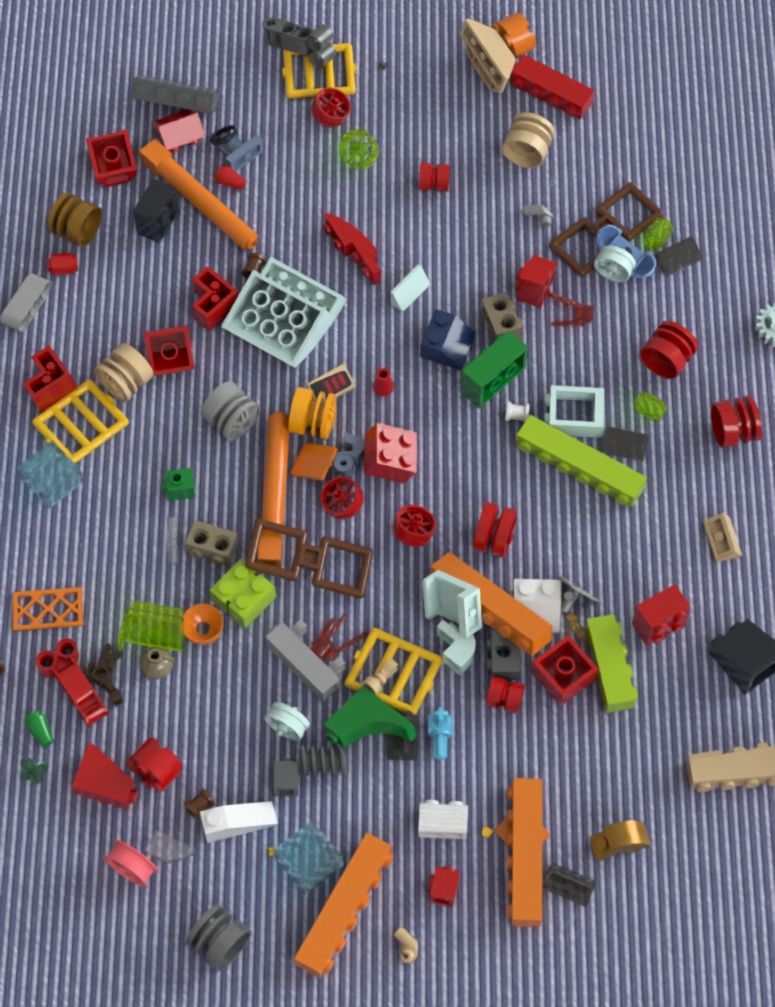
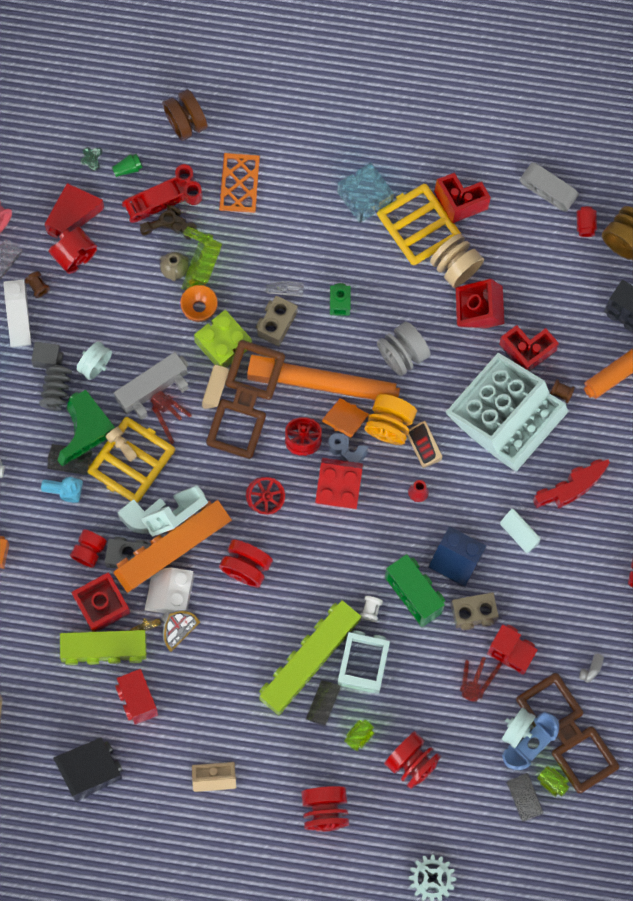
camera: 95 degrees right, 10 degrees up
(298, 594) = (215, 387): none -> tan slope

